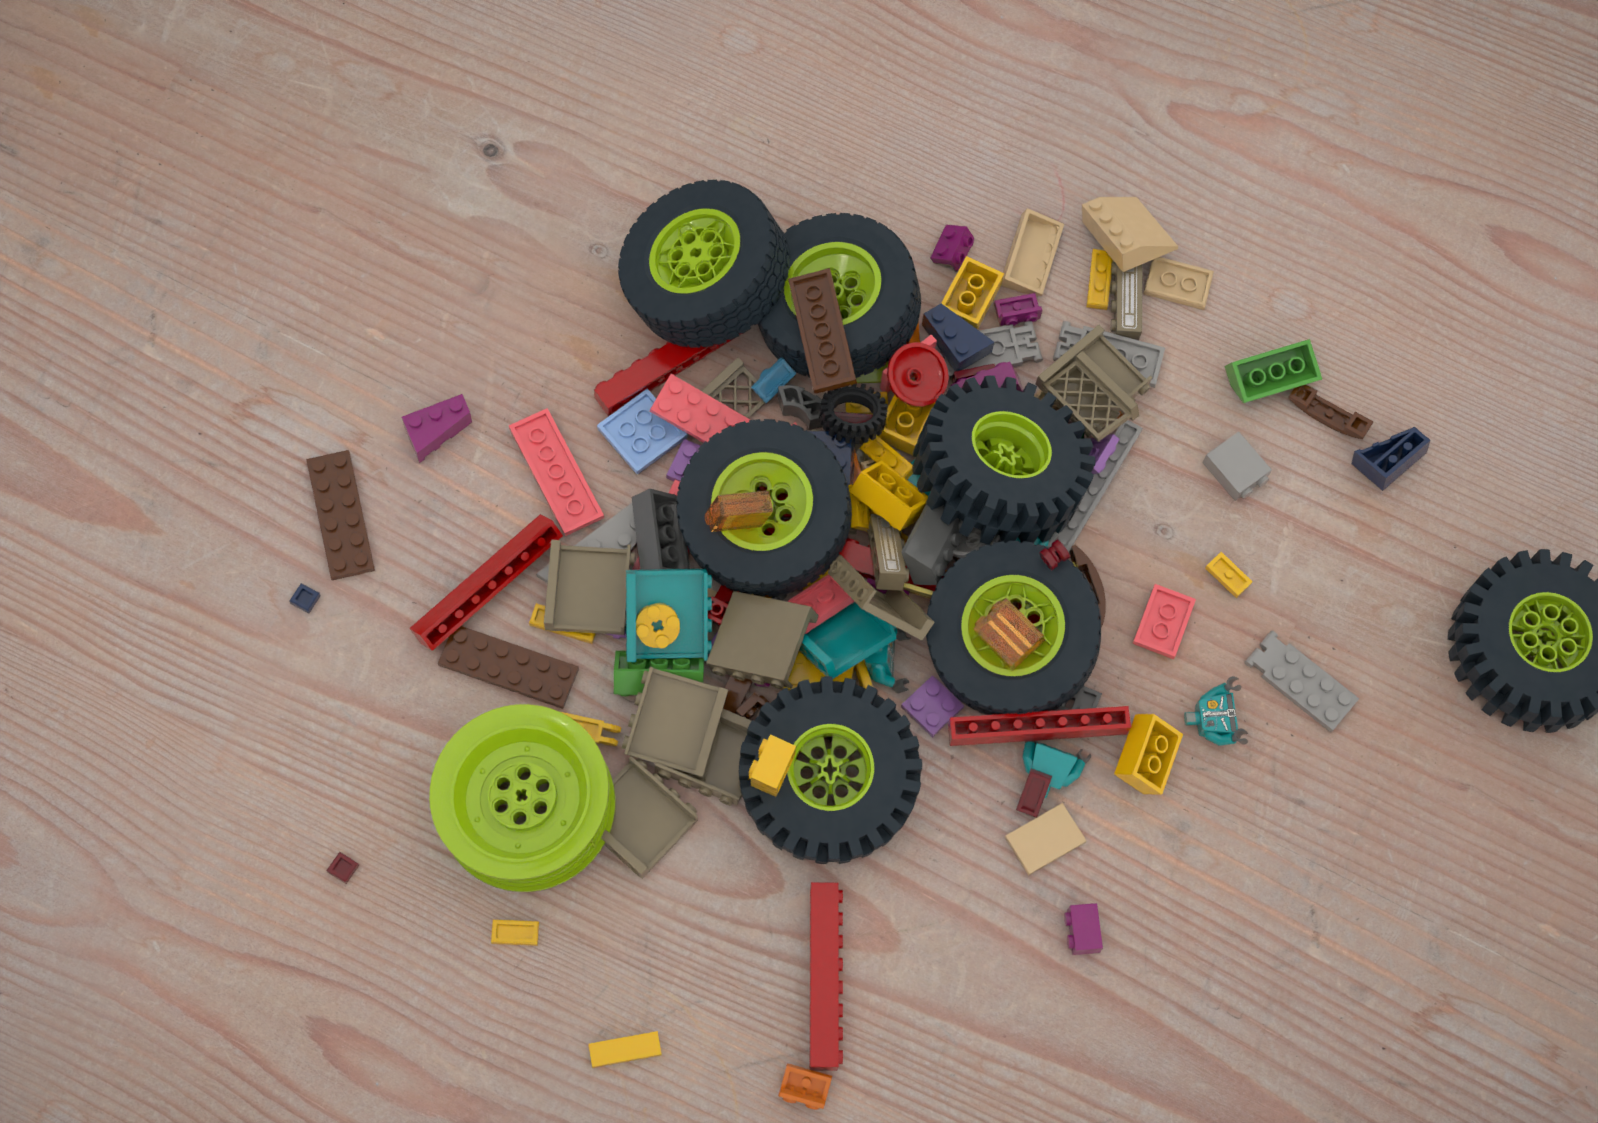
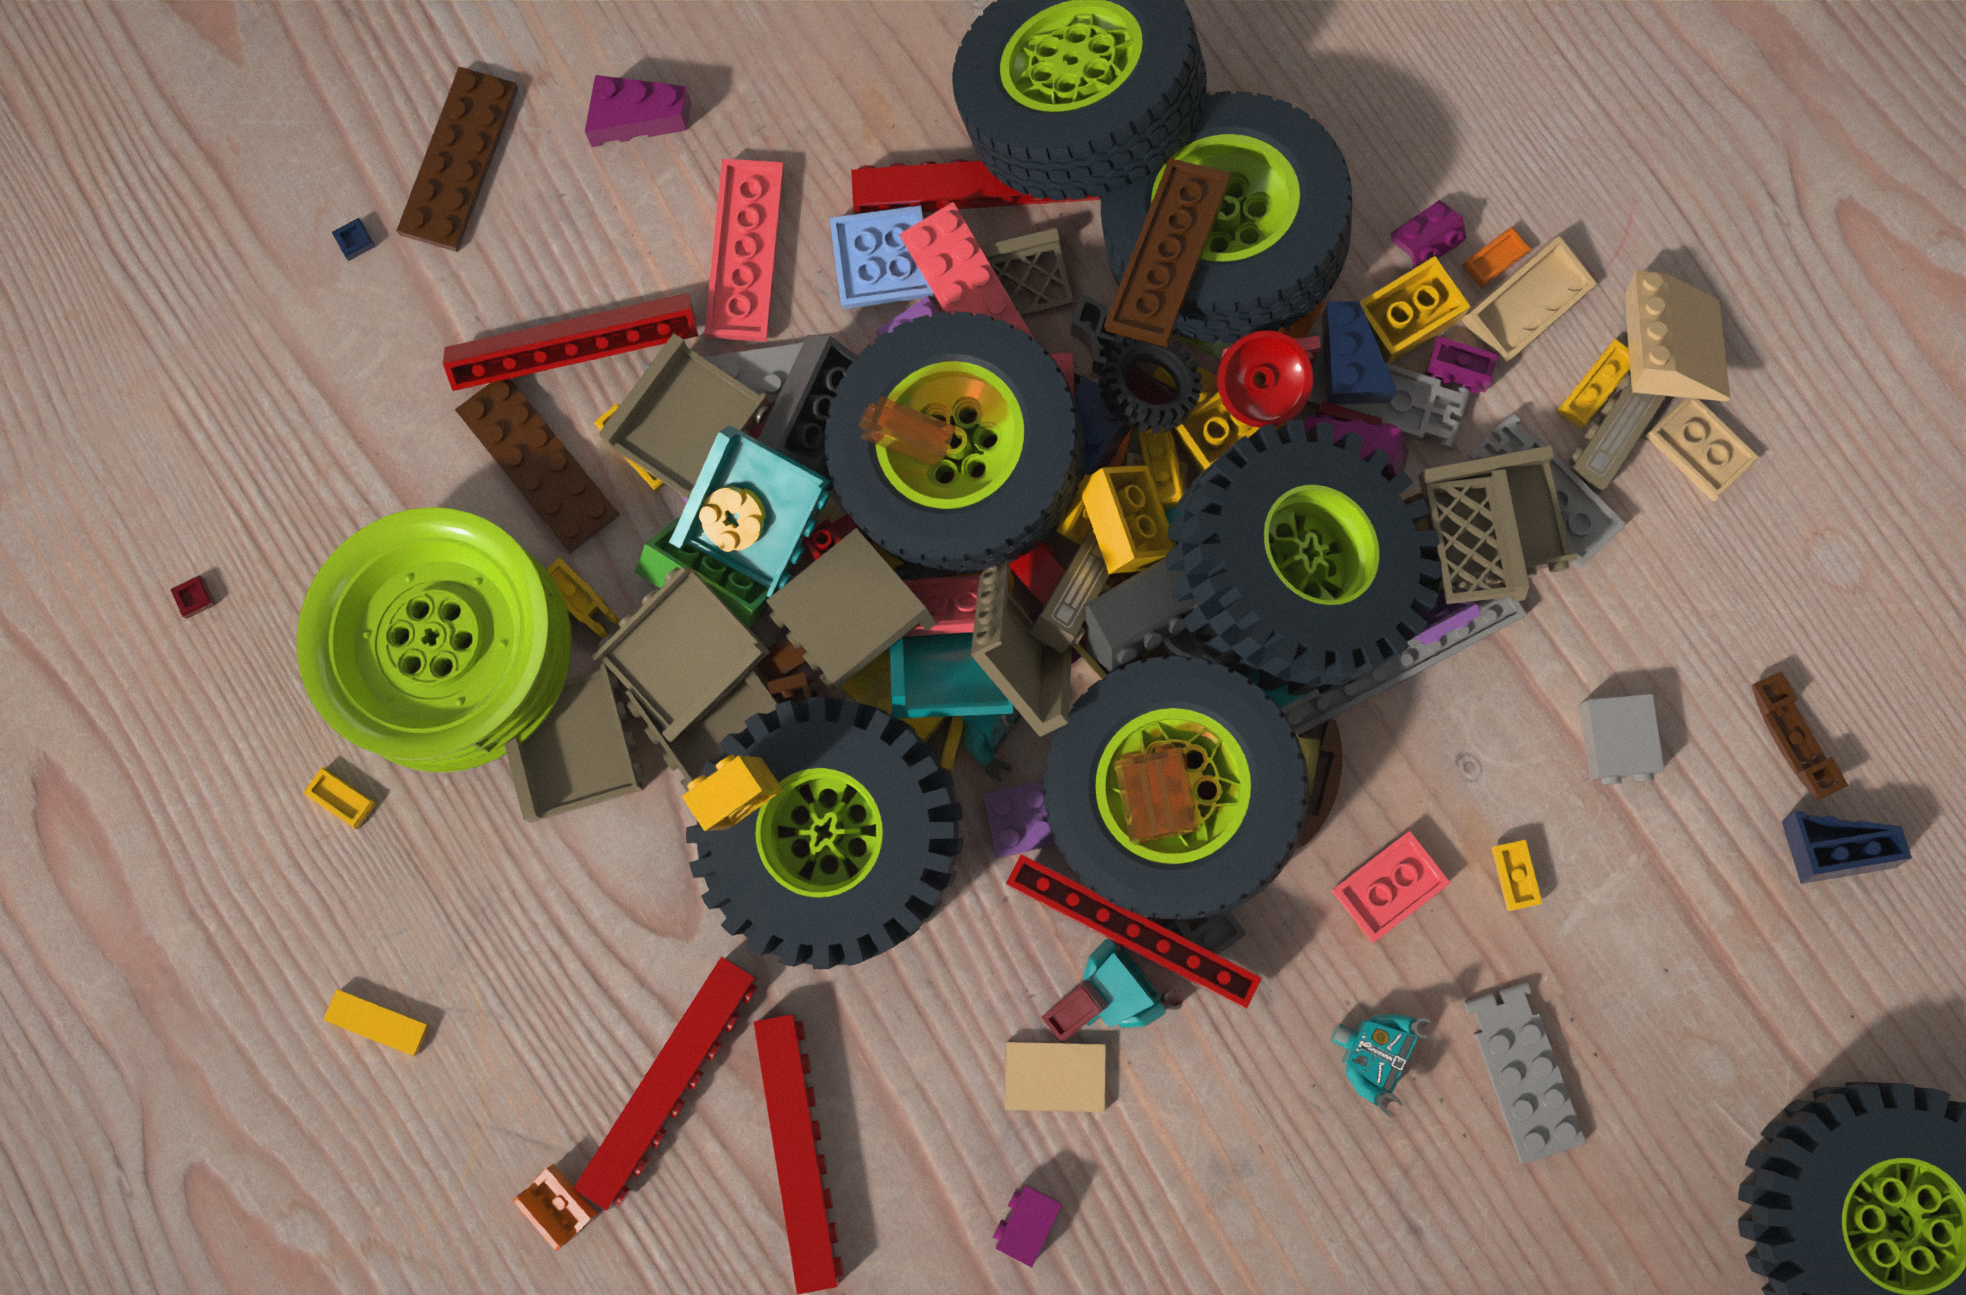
camera: 40 degrees right, 10 degrees up
(771, 378) = (1083, 279): dark azure tile -> none
(926, 969) = (797, 1154): none -> red brick
(998, 239) = (1496, 257): none -> orange tile
(1054, 554) = (1271, 727): dark red wheel -> none
(1148, 754) = (1253, 1052): yellow brick -> none
(1274, 371) = (1754, 640): bright green slope -> none

